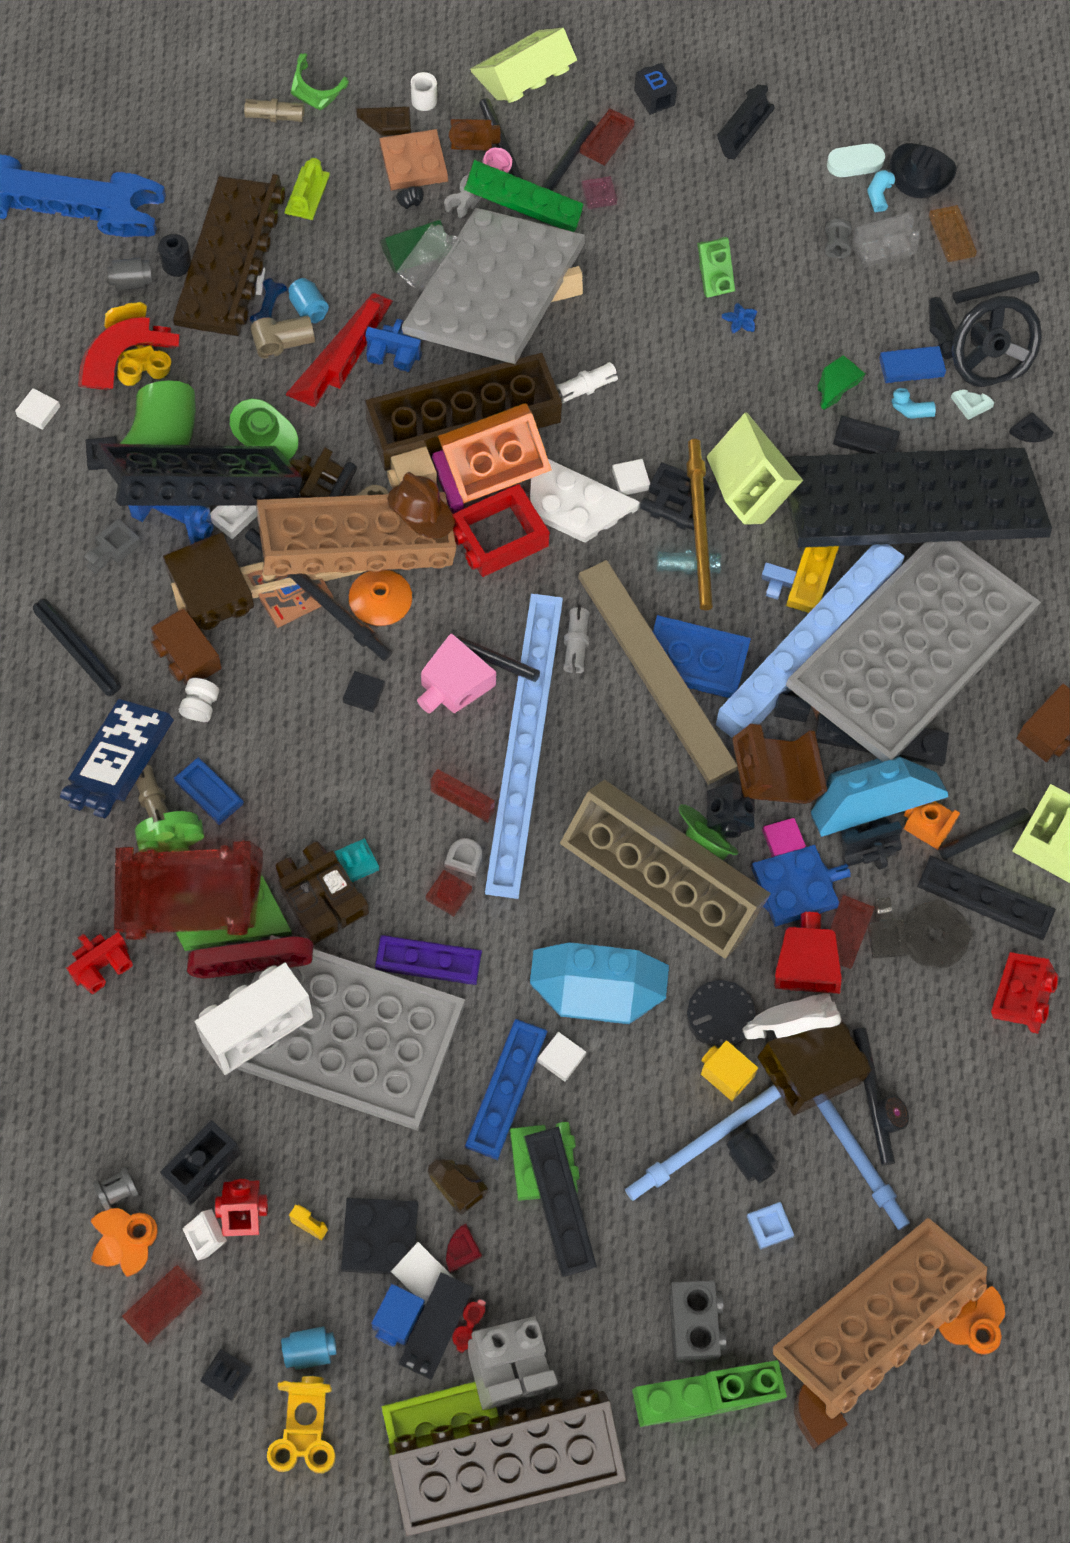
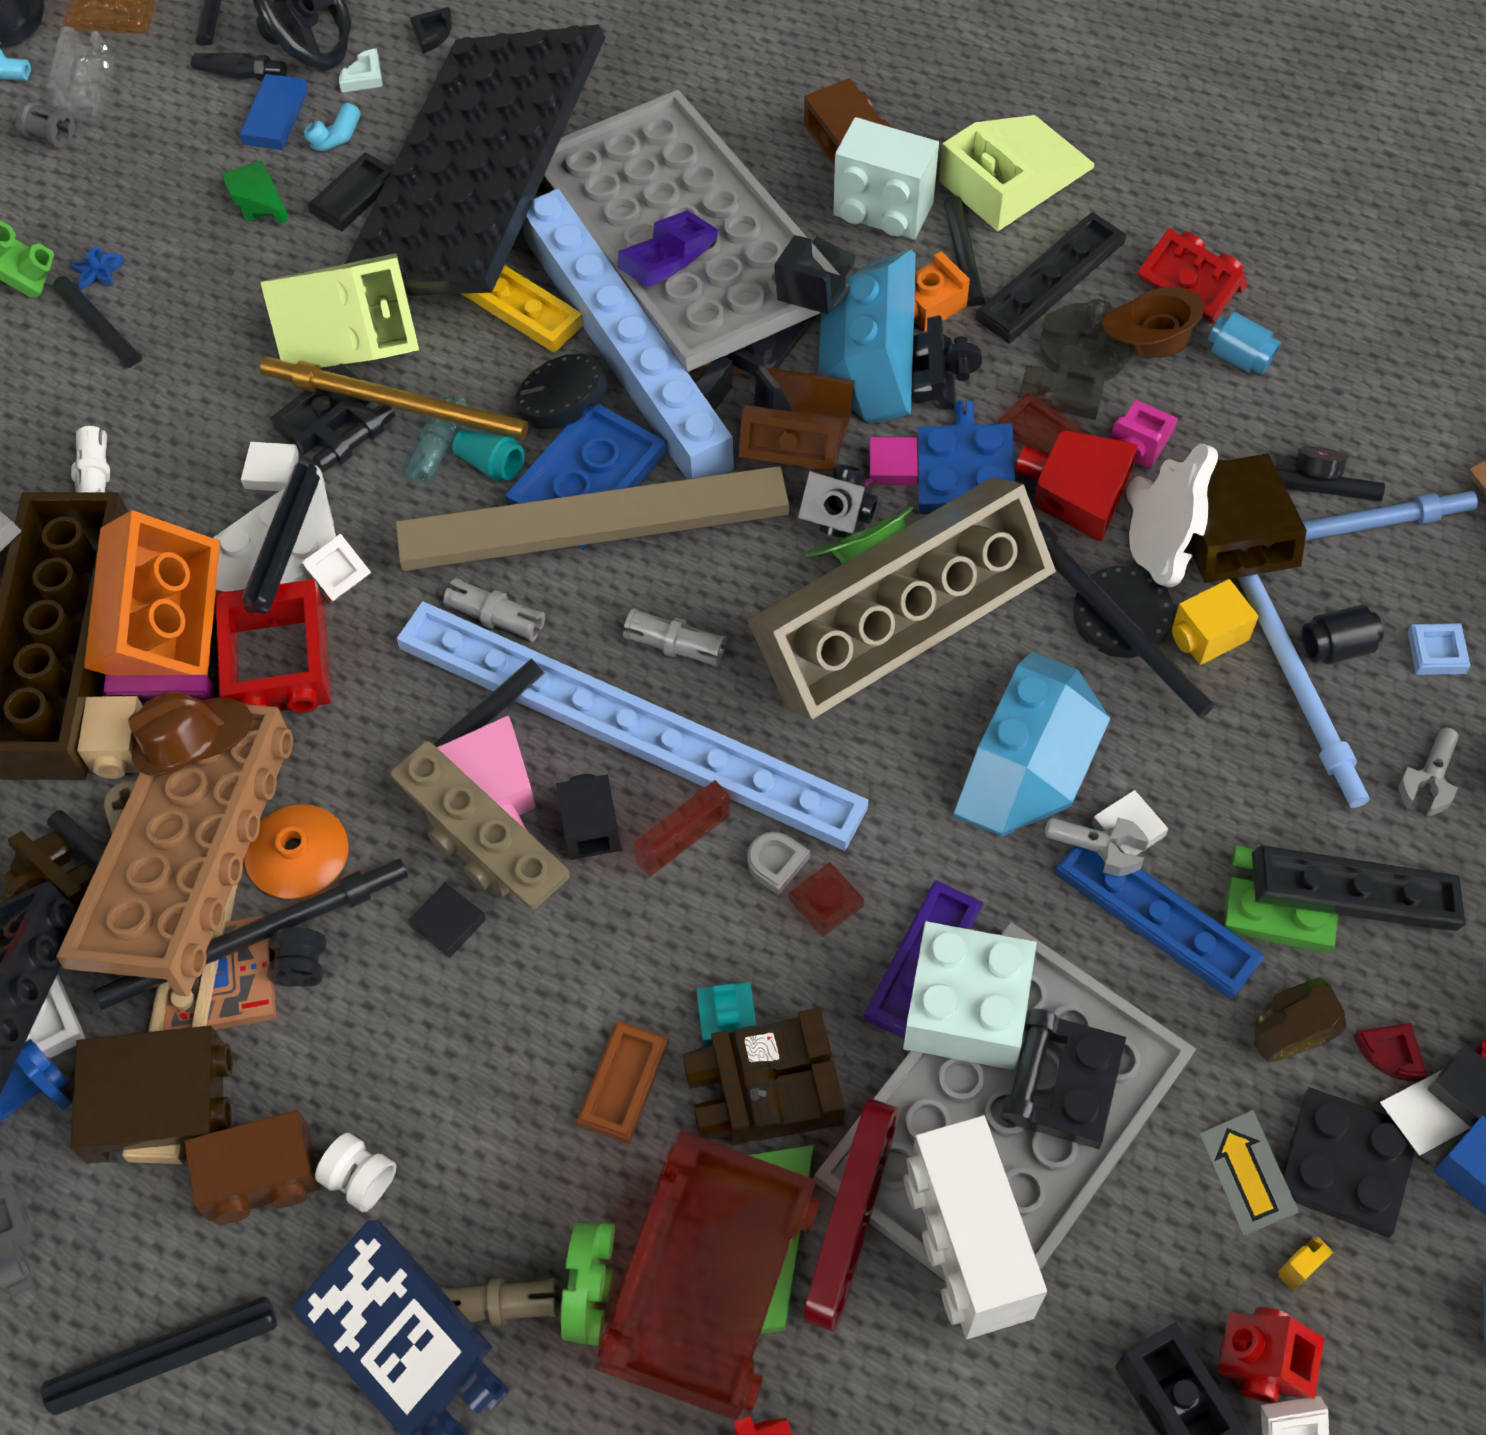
camera: 65 degrees left, 5 degrees down
(208, 791) = (519, 1207): blue tile -> none
(298, 819) = (622, 1082): none -> dark orange tile
(311, 622) = (296, 957): none -> black wheel
(353, 1178) = (1249, 1172): none -> sticker
(370, 1064) = (1082, 1084): none -> black plate
(399, 982) = (970, 995): none -> light aqua brick
(417, 682) = (478, 829): none -> dark tan bracket
(452, 741) = (588, 816): none -> black brick
(538, 1038) = (1103, 843): none -> light grey bar
(569, 542) = (335, 568): none -> white tile
(570, 502) = (280, 539): none -> black axle
(595, 749) = (674, 637): none -> light grey pin
(670, 1239) = (1433, 774): none -> light grey bar
(686, 597) = (490, 453): none -> teal cone
(699, 337) = (97, 321): none -> black bar
(749, 947) = (1125, 626): none -> black bar
(751, 618) = (561, 390): none -> black tile
(777, 577) = (516, 344): medium blue tile -> none
(788, 749) = (769, 393): none -> black slope
(866, 989) = (1147, 429): none -> dark pink bracket
(879, 729) = (801, 283): none -> black panel
(881, 642) = (673, 247): none -> dark purple slope
(960, 970) = (1156, 321): none -> reddish brown piece
(976, 1039) = (1243, 343): none -> dark azure brick
(1007, 758) = (885, 178): none -> light aqua brick

